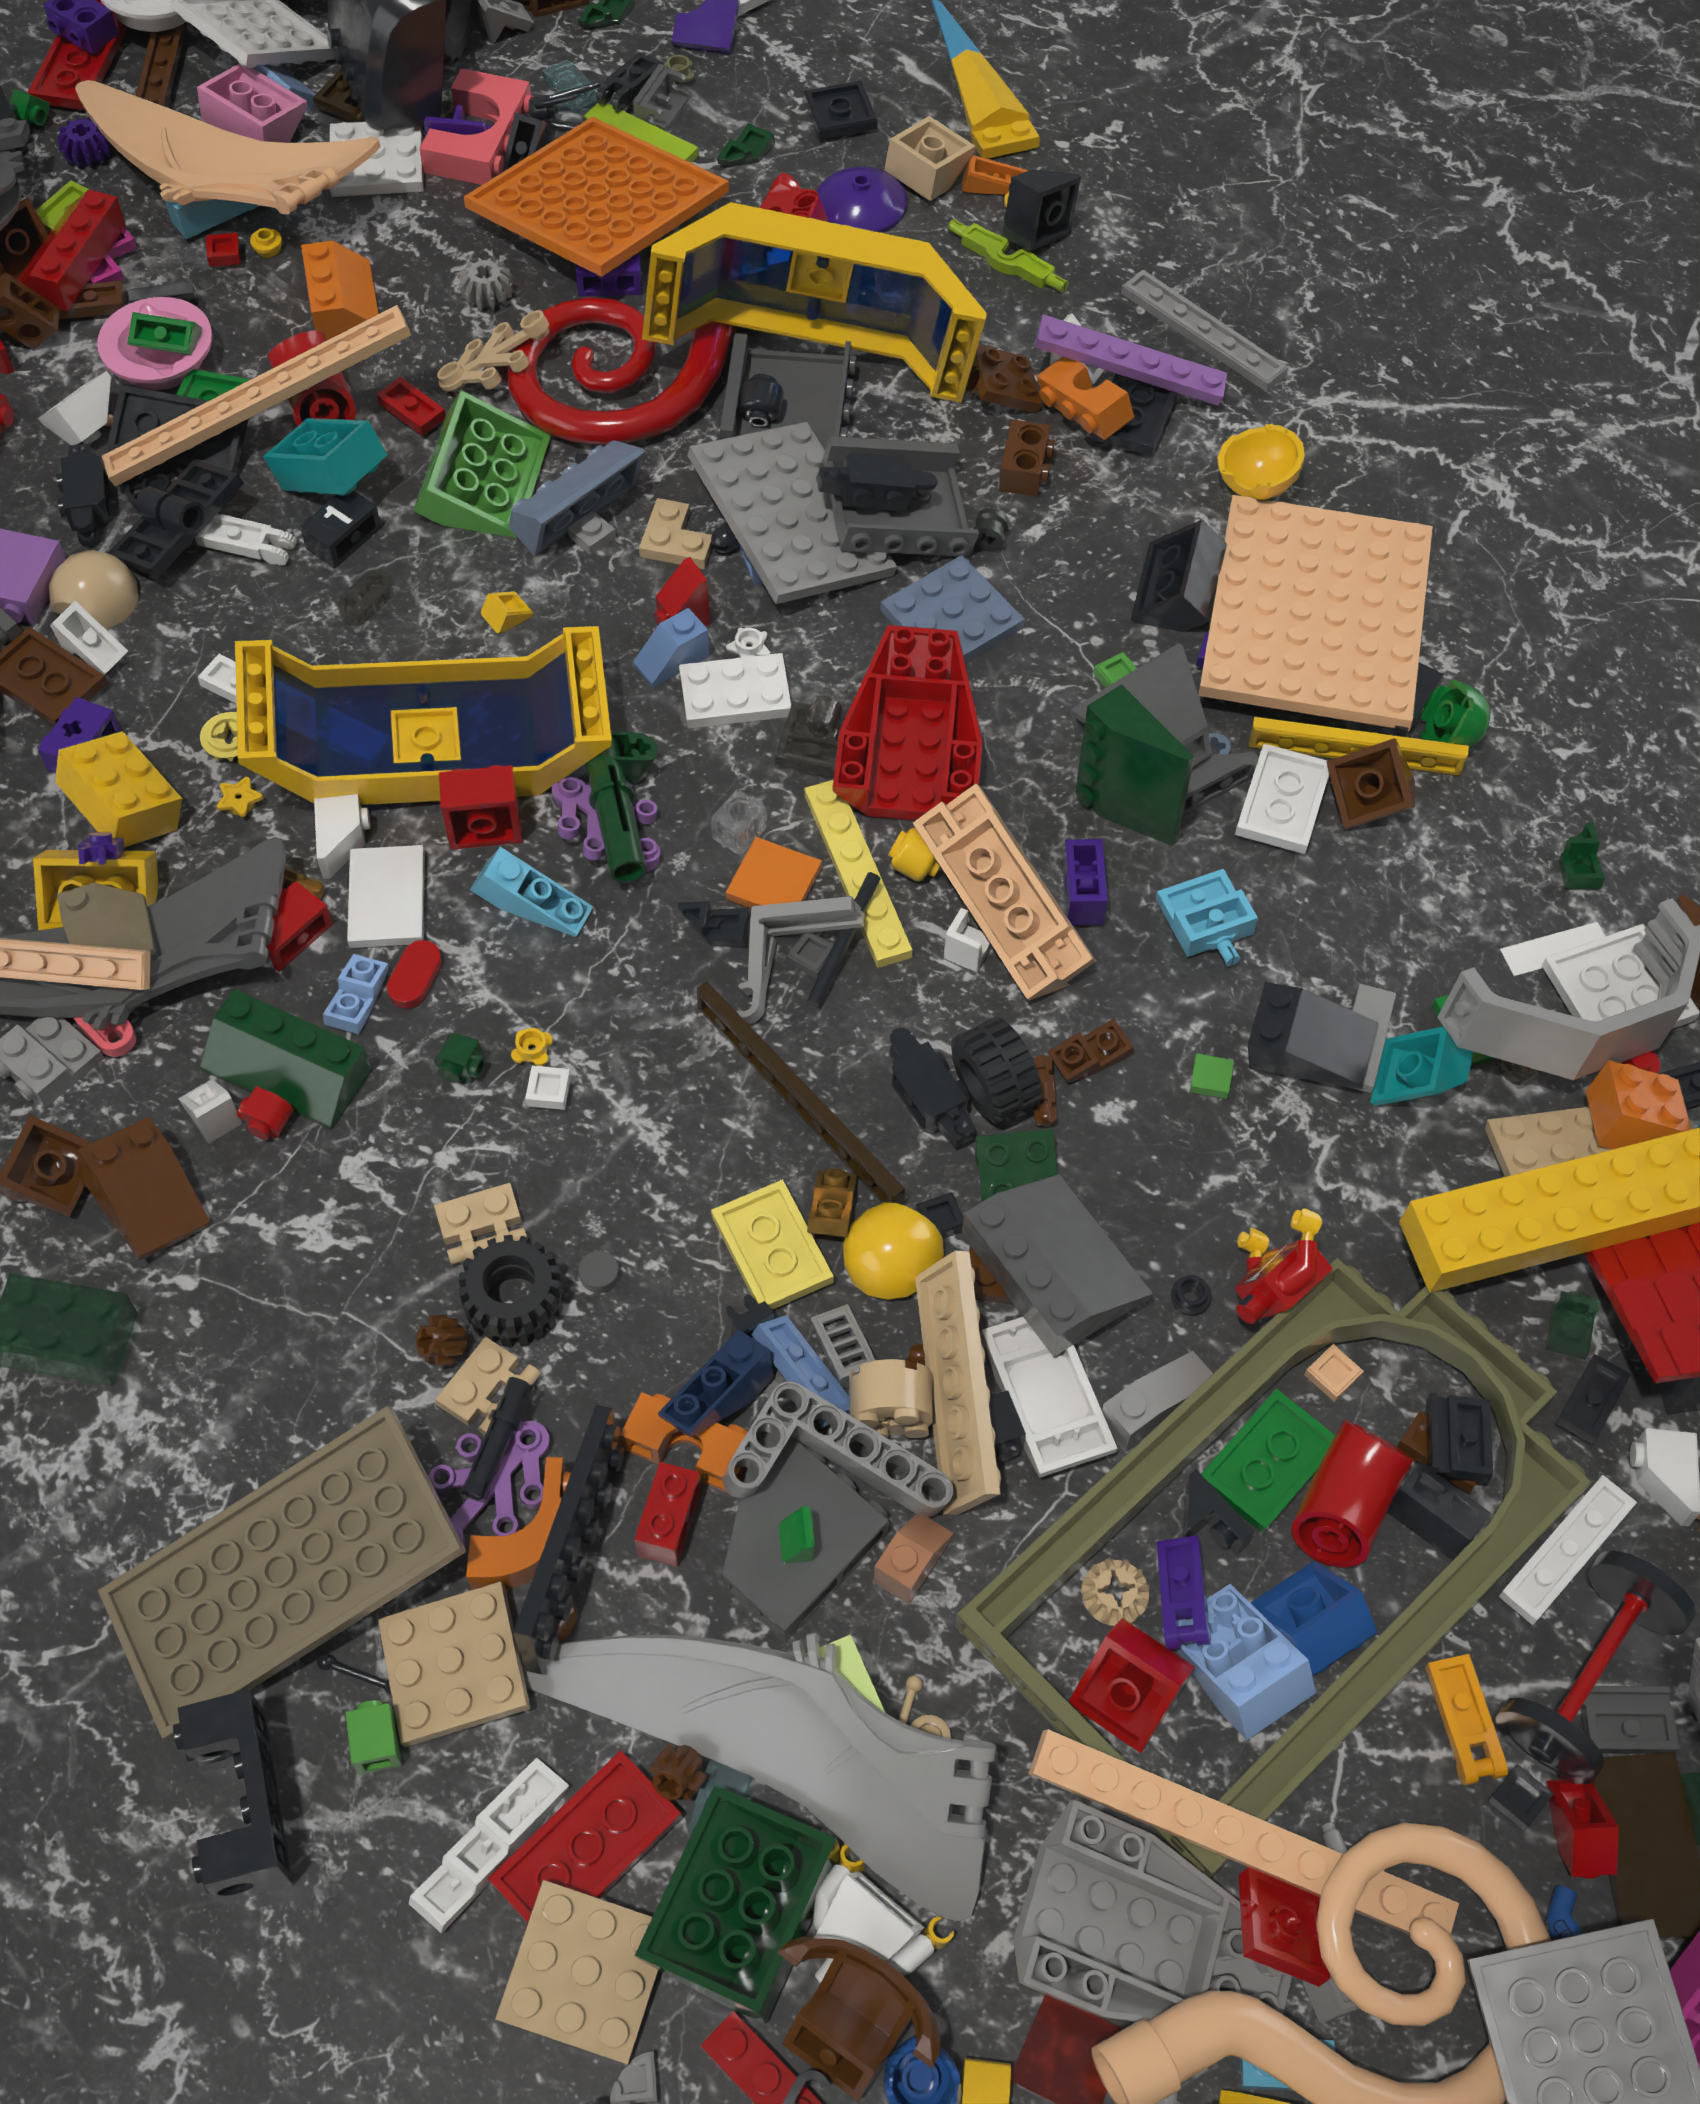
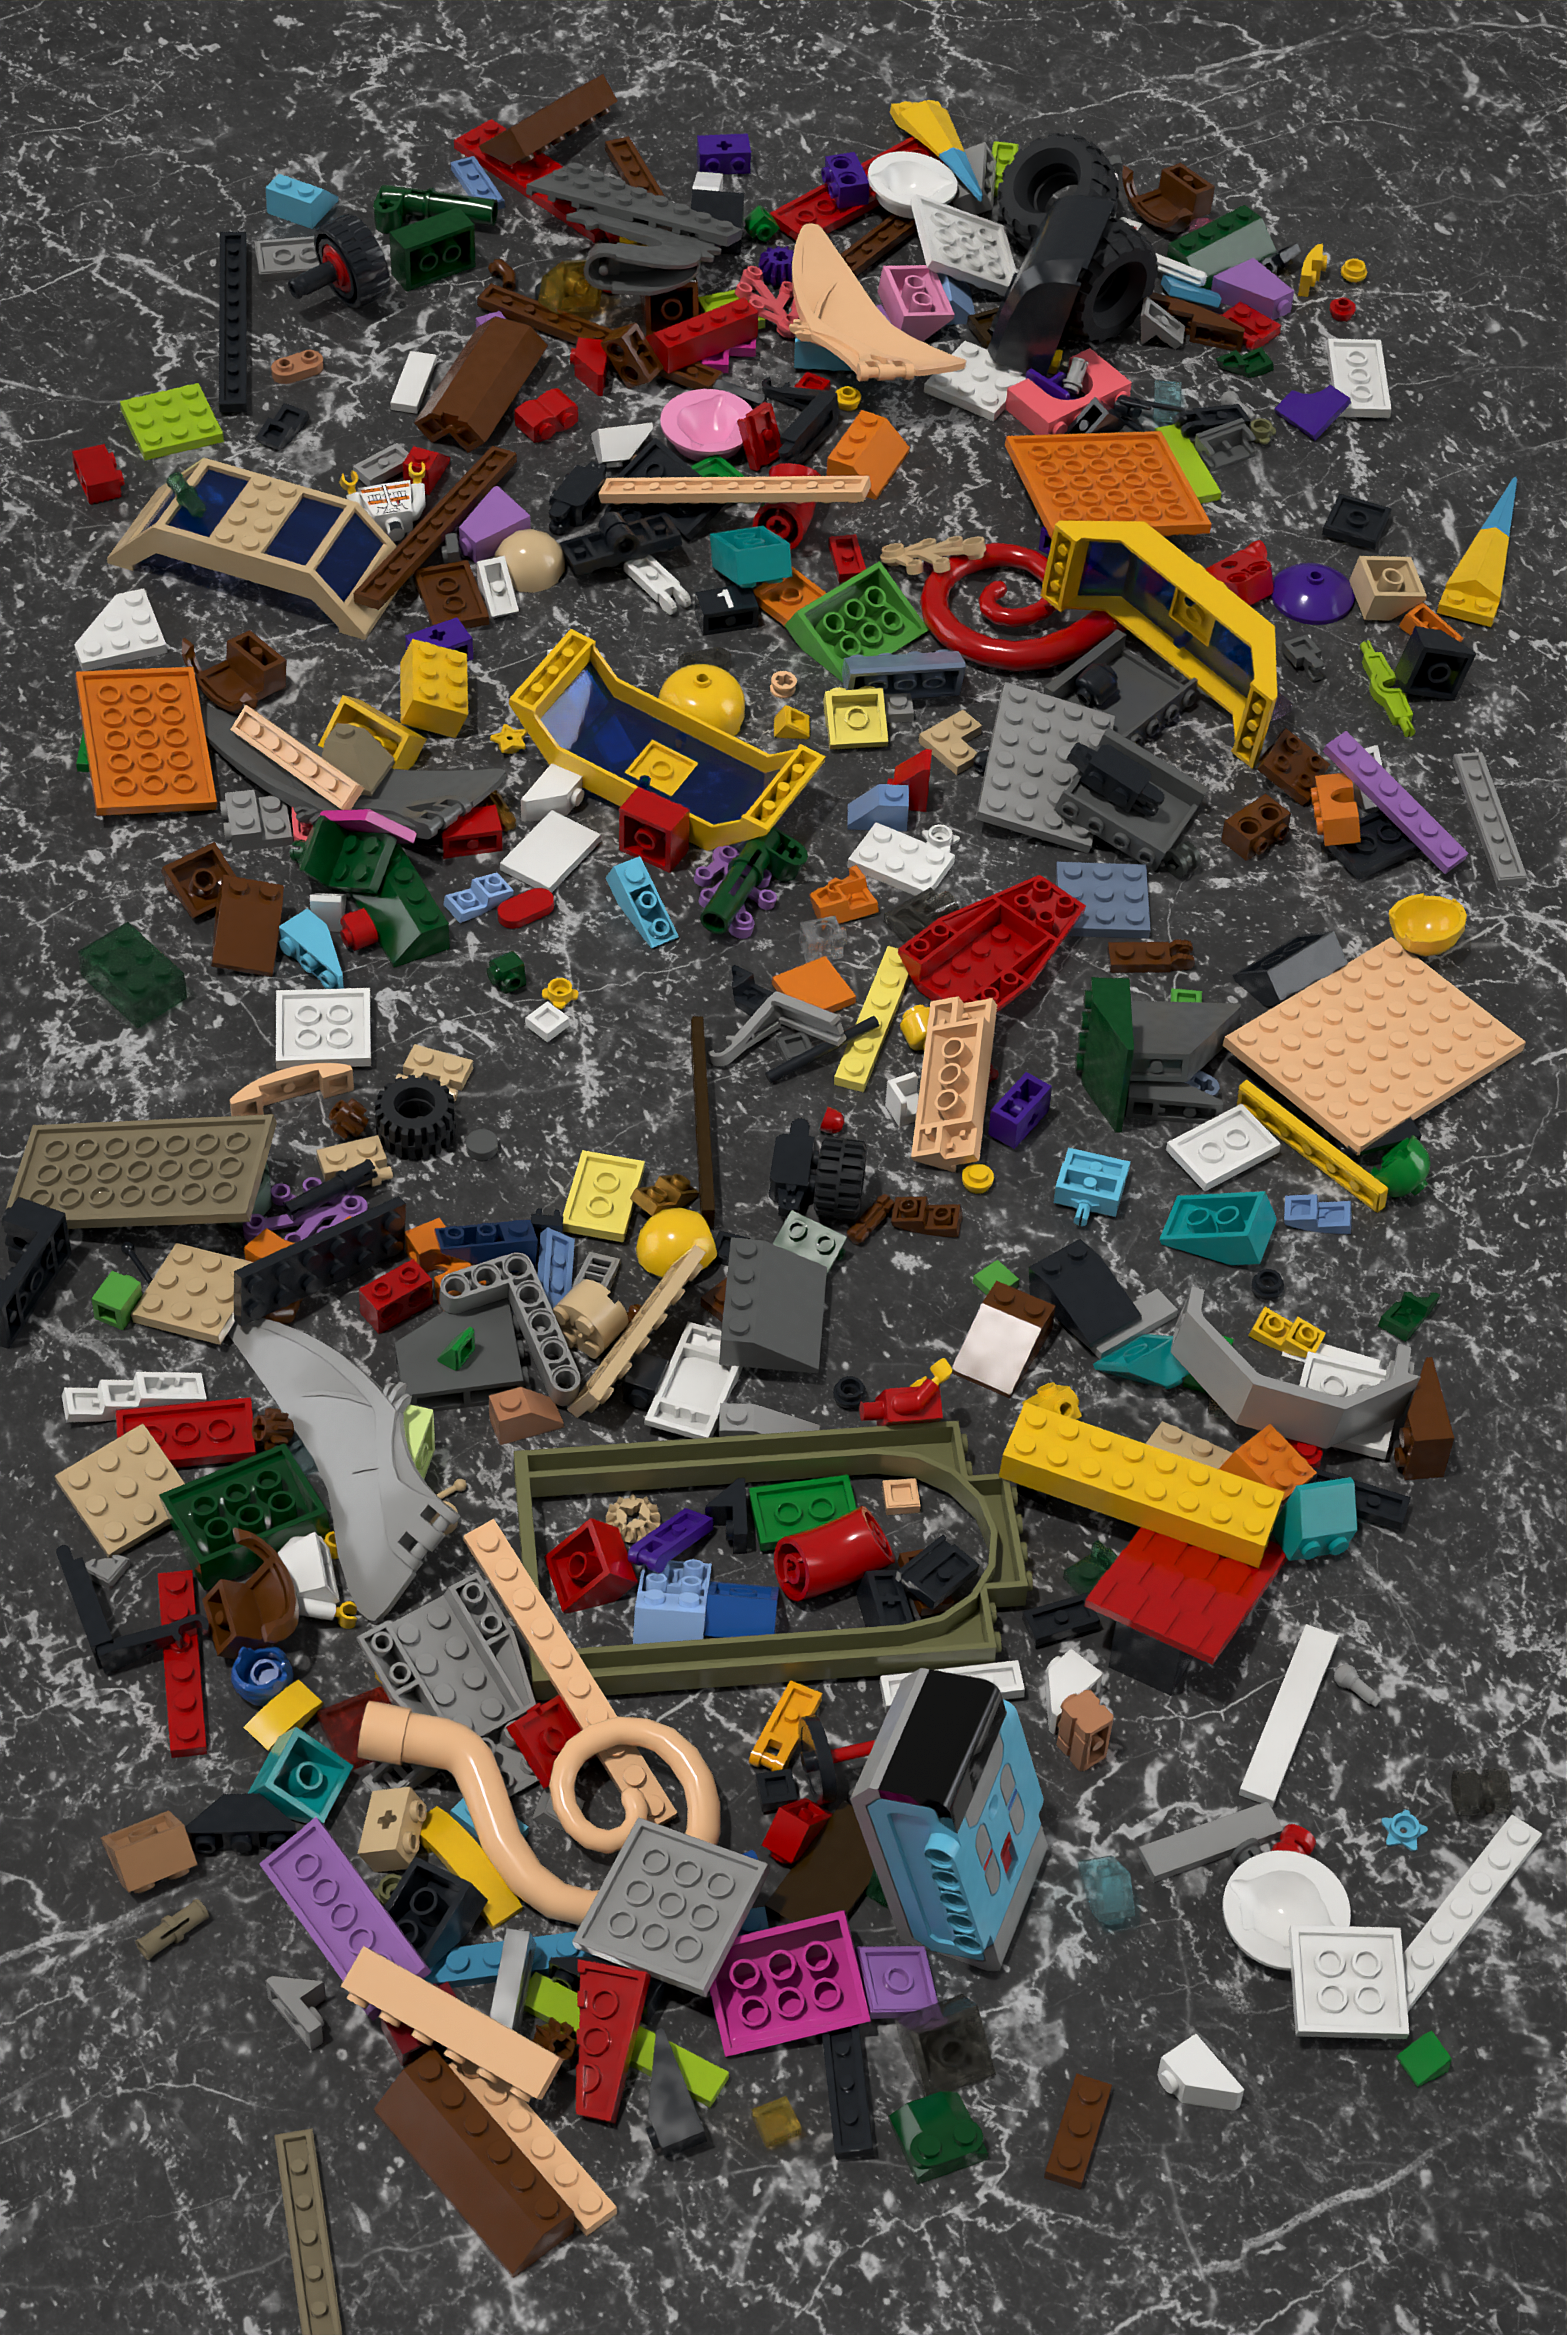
camera: 35 degrees right, 10 degrees down
(100, 848) = (388, 711): dark purple plate -> none
(141, 196) = (753, 280): none -> coral plant
(163, 333) = (714, 419): green slope -> none
(187, 1041) = (344, 858): none -> dark green plate
(188, 992) = (369, 821): none -> dark pink tile
(223, 326) = (760, 436): none -> red plate
(231, 1163) = (310, 943): none -> medium azure slope
(260, 285) = (811, 426): none -> black hinge
(321, 1251) = (323, 1027): none -> white plate
(376, 1308) = (292, 1082): none -> light nougat slope
(396, 480) = (787, 597): none -> orange plate
(403, 630) = (707, 695): none -> yellow cylinder
(461, 582) = (780, 678): none -> light nougat bush
(472, 101) = (1075, 375): none -> light grey pin
(486, 283) = (974, 505): light grey gear -> none
(567, 567) = (855, 718): none -> light yellow plate
(625, 52) = (1231, 397): none -> light grey piece
(718, 764) = (844, 898): none -> orange slope
(748, 148) = (1261, 514): dark green slope -> none
(915, 1010) = (832, 1121): none -> red hinge
(1044, 646) = (1150, 956): none -> reddish brown hinge
(1100, 978) = (977, 1178): none -> yellow plate
(1279, 1135) = (1004, 1339): none -> slope
(1355, 882) = (1221, 1226): none -> teal slope
(1372, 783) = (1294, 1170): reddish brown slope -> none
(1391, 1179) = (1057, 1399): none -> yellow brick
(1431, 808) = (1323, 1217): none -> medium blue slope
(1444, 904) = (1267, 1278): none -> black plate
(1504, 953) = (1285, 1336): none -> yellow slope

